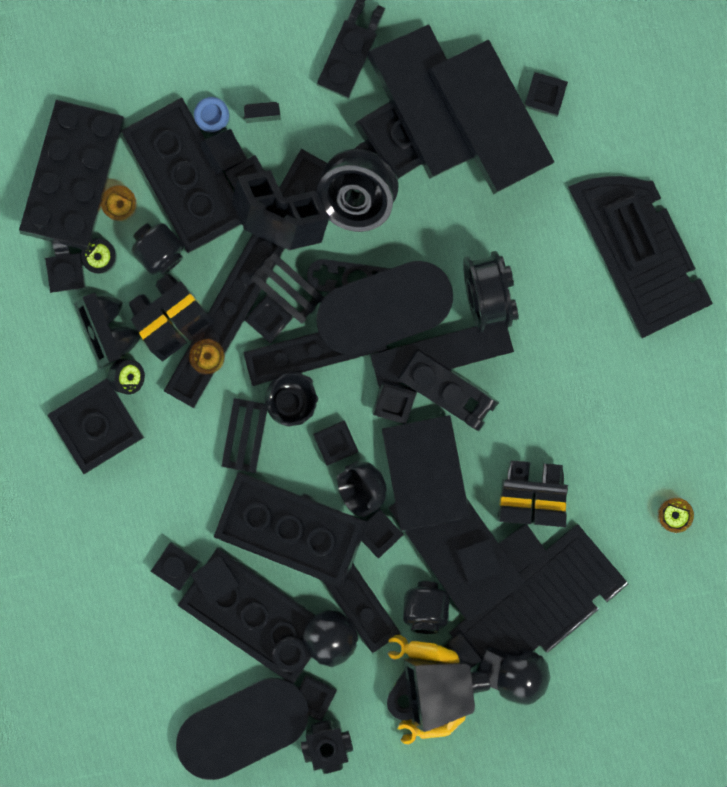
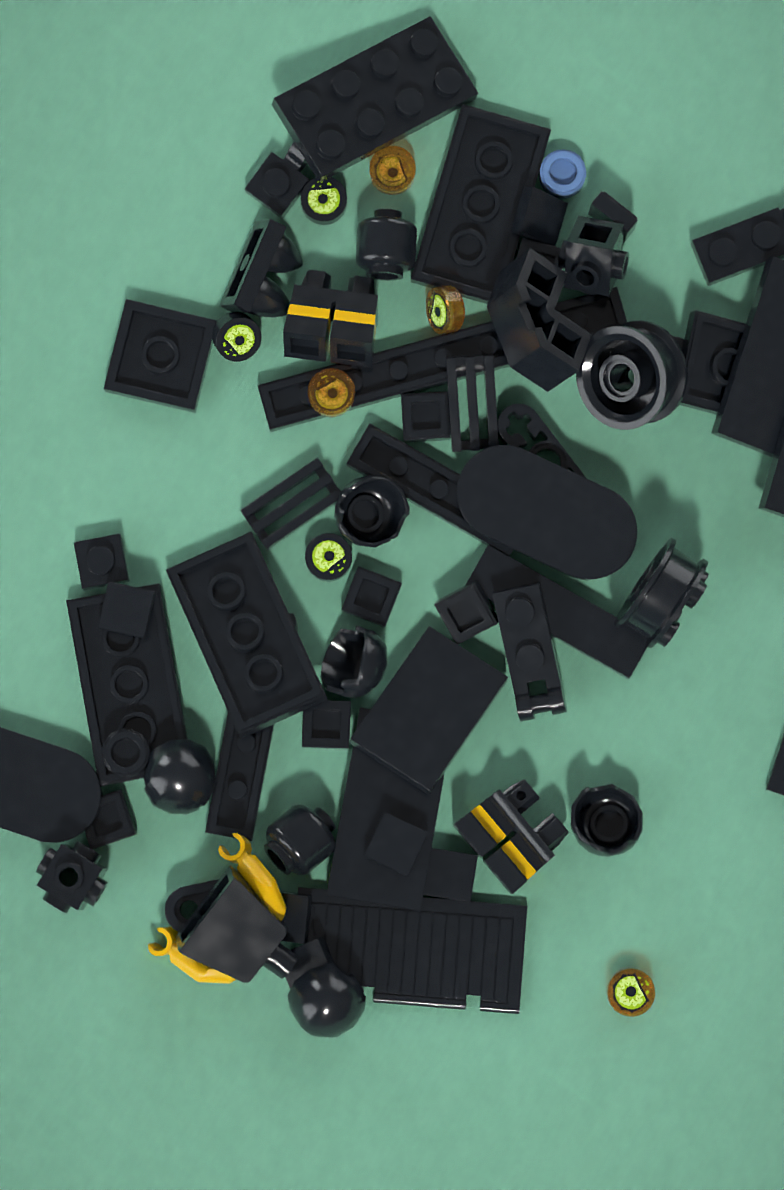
camera: 40 degrees right, 5 degrees down
(222, 251) = (445, 309): none -> clear orange tile
(274, 152) = (594, 256): none -> black brick
(292, 444) = (328, 557): none -> tile
(576, 439) = (606, 820): none -> black hair

